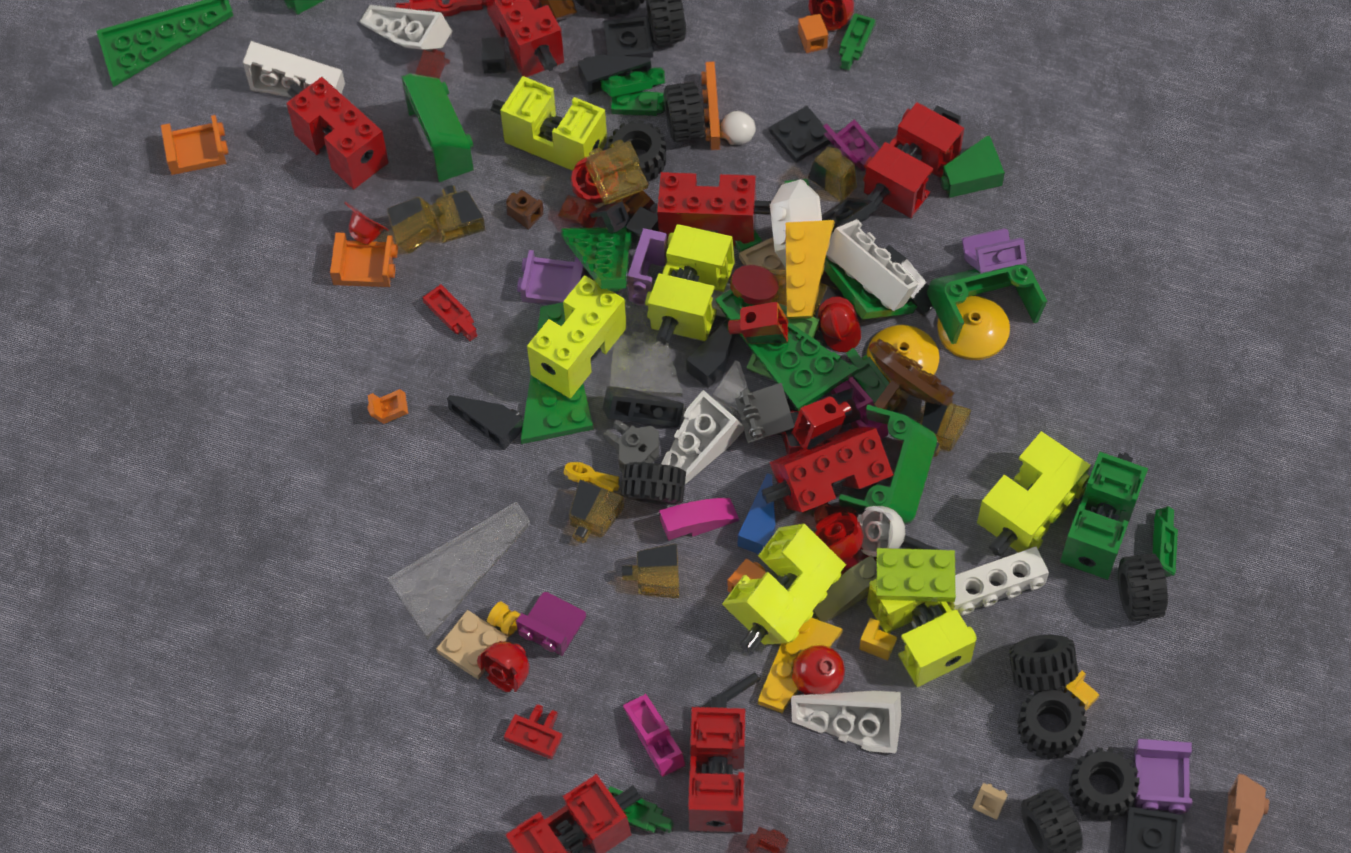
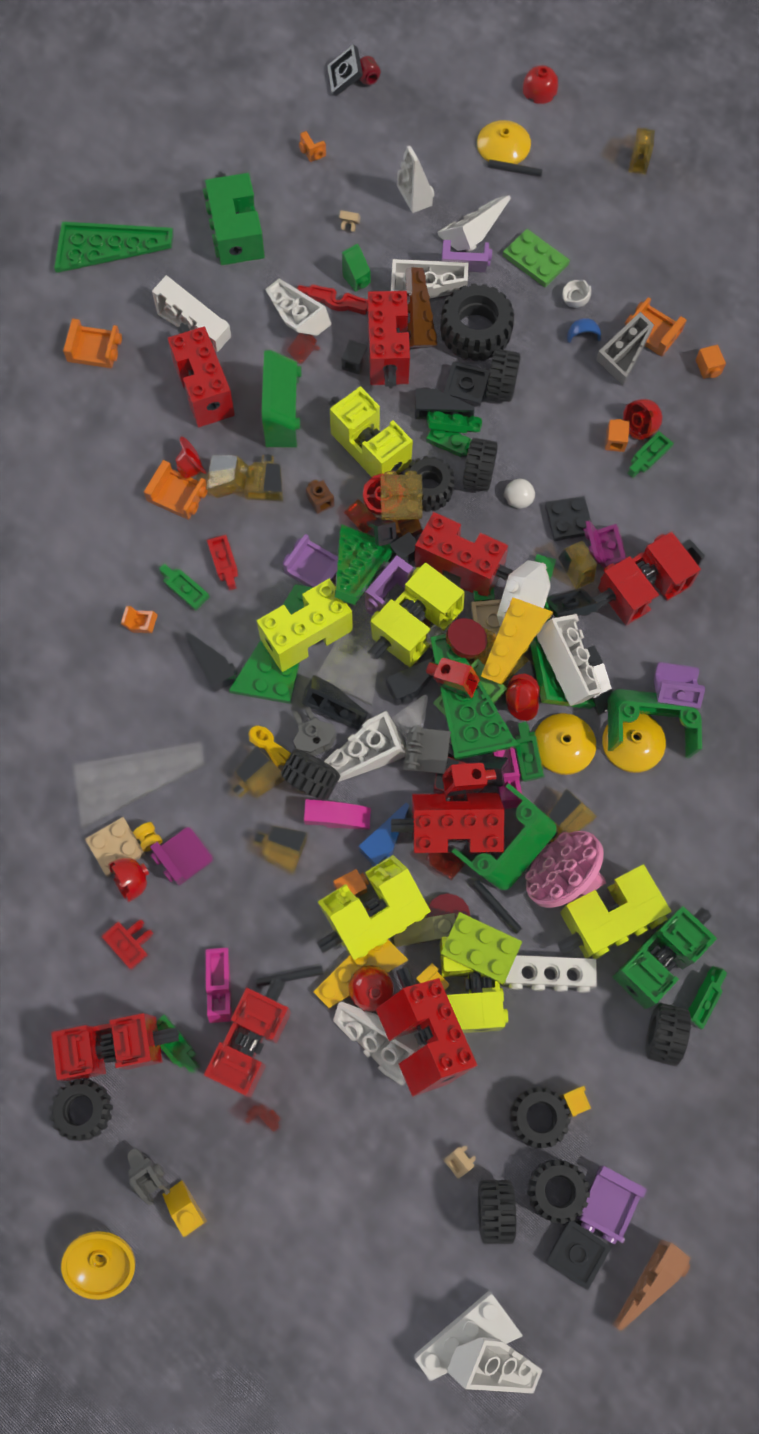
camera: 20 degrees right, 10 degrees up
(419, 354) = (184, 586): none -> green hinge
(711, 113) = (503, 473): orange plate -> none
(841, 534) = (437, 882): red cylinder -> none
(881, 529) = (473, 892): white cylinder -> none
(893, 660) = (429, 1011): none -> red piece
(906, 380) = (553, 772): reddish brown bracket -> none
(964, 469) = (566, 870): none -> bright pink bracket
(973, 170) = (695, 605): green slope -> none
(1043, 662) = (555, 1066): black tyre -> none

